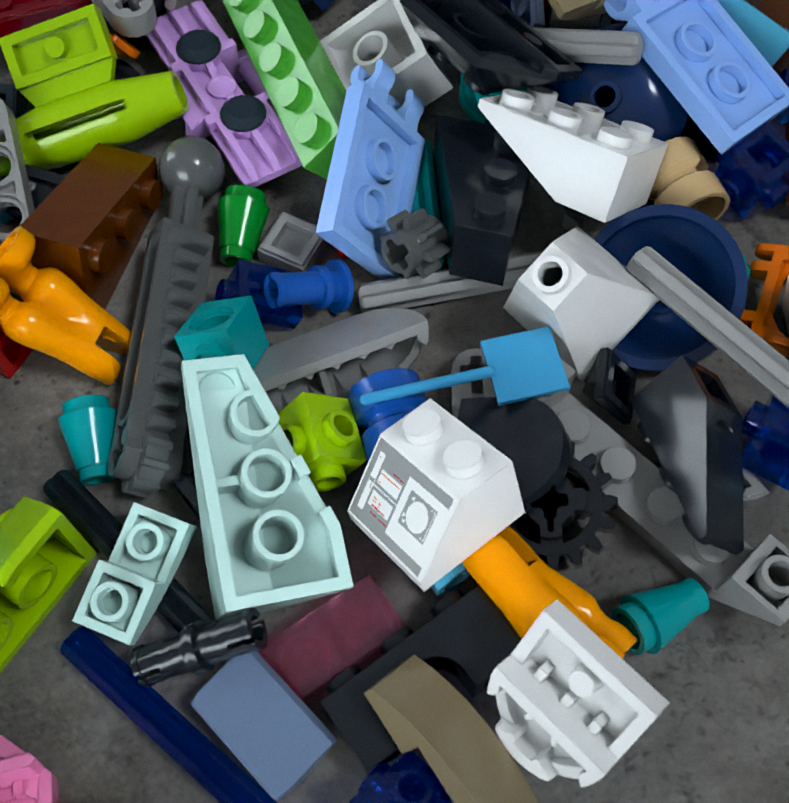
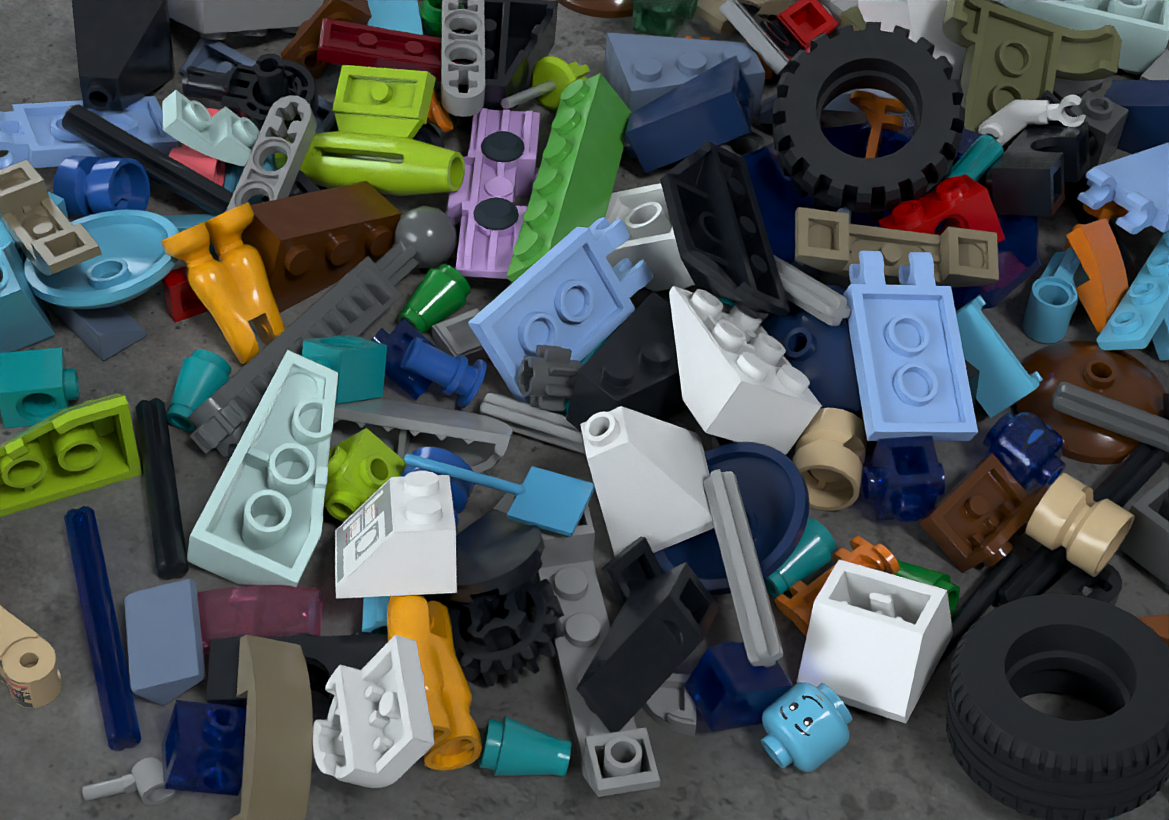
camera: 30 degrees right, 15 degrees down
(136, 576) = (142, 497): light aqua slope -> none
(199, 647) = (157, 559): black pin -> none

